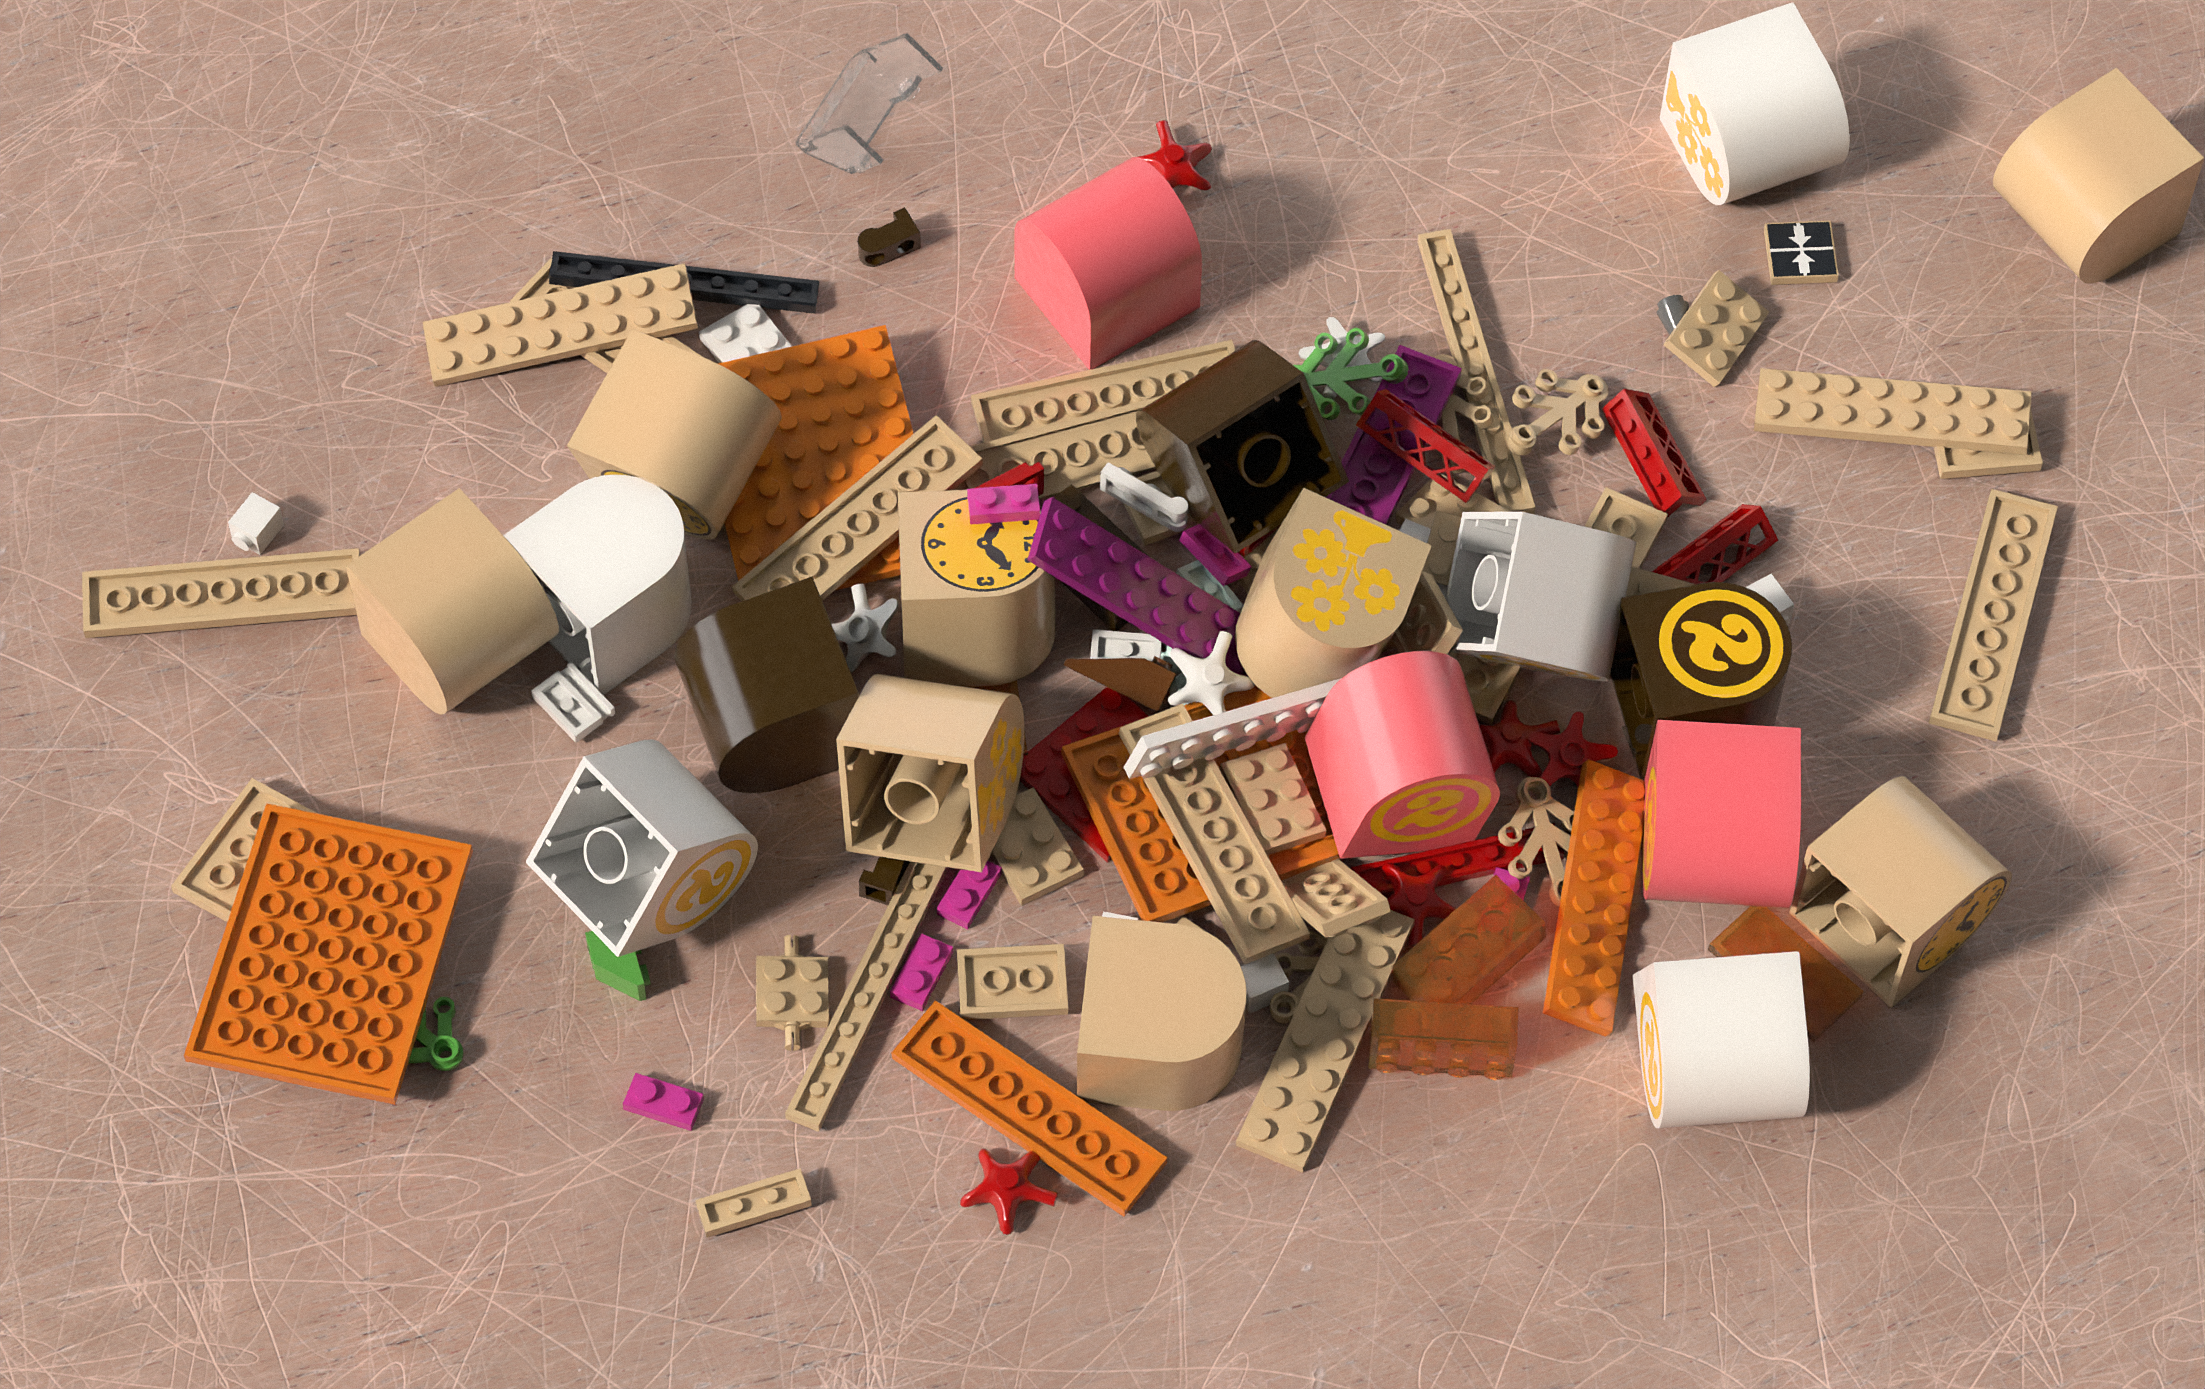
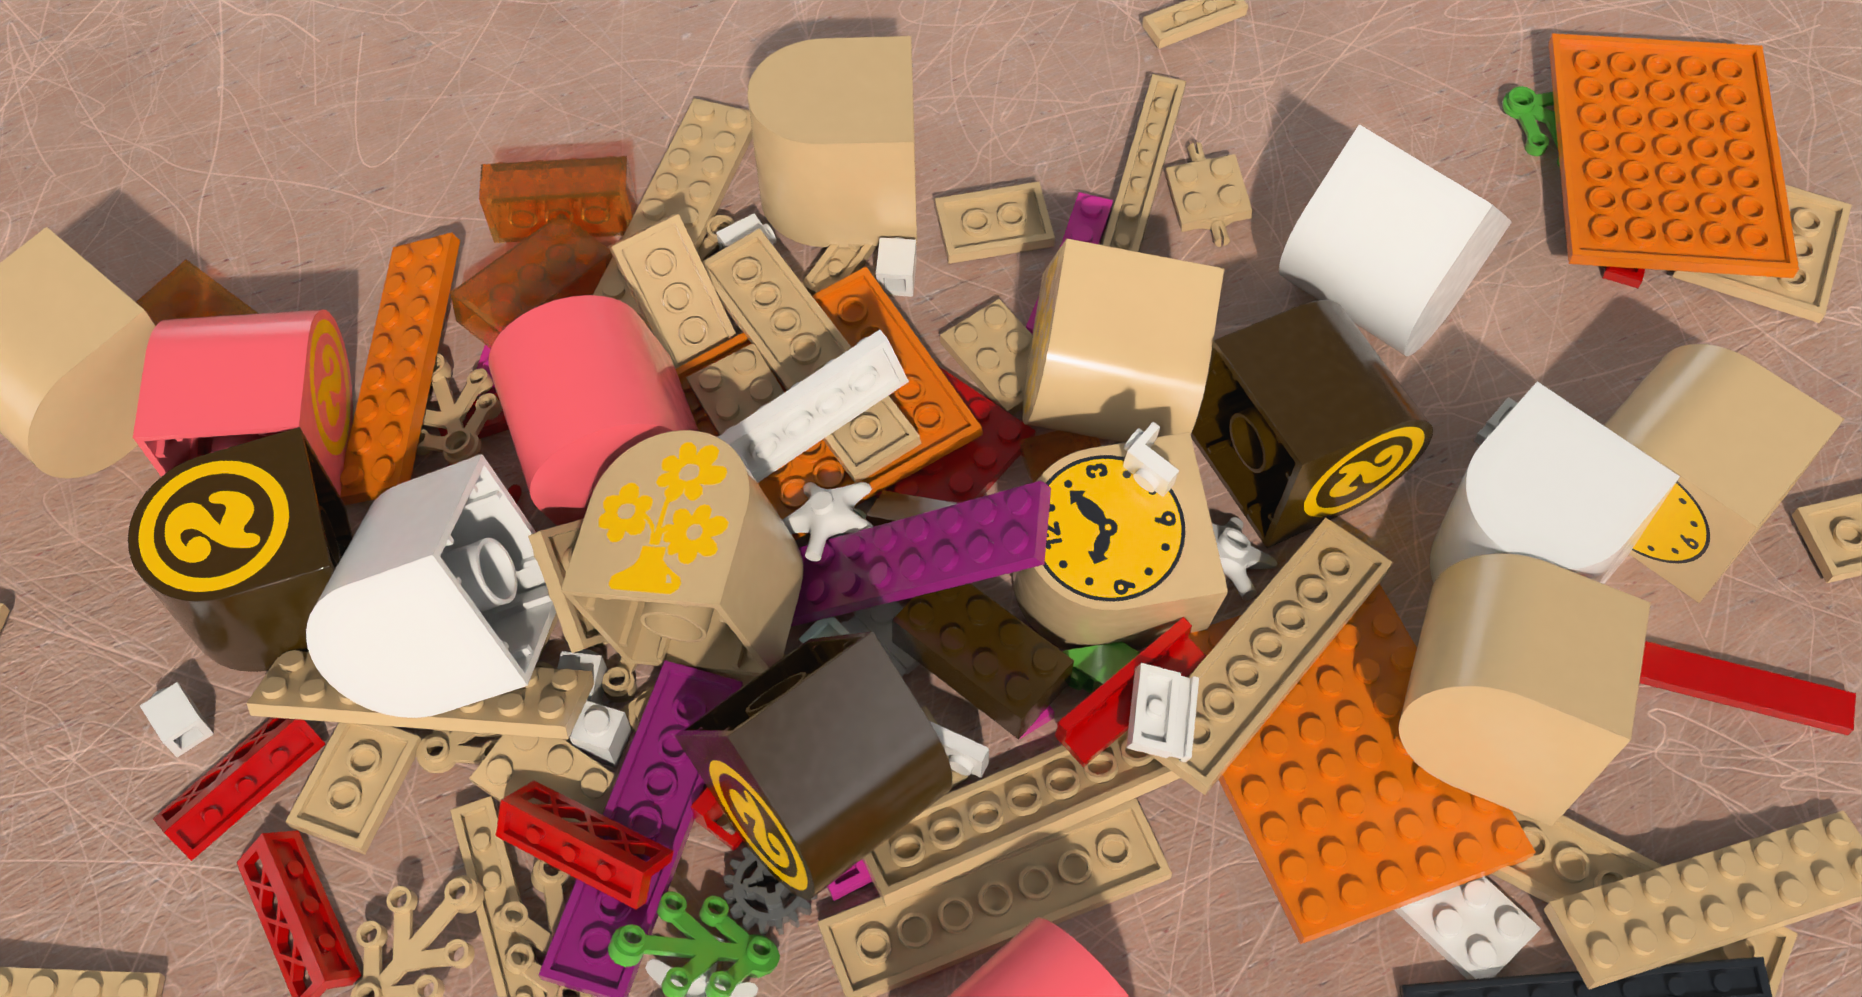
camera: 175 degrees right, 0 degrees up
(449, 474) = (1748, 688): none -> red tile
(663, 1101) = (1302, 91): dark pink plate -> none
(944, 564) = (1147, 466): none -> white bracket
(960, 460) = (1162, 712): none -> white plate
(1003, 504) = (1094, 579): dark pink plate -> none
(1007, 1187) = (966, 54): red animal -> none
(1029, 1108) = (999, 133): orange plate -> none
(1723, 1039) = (271, 200): white brick -> none

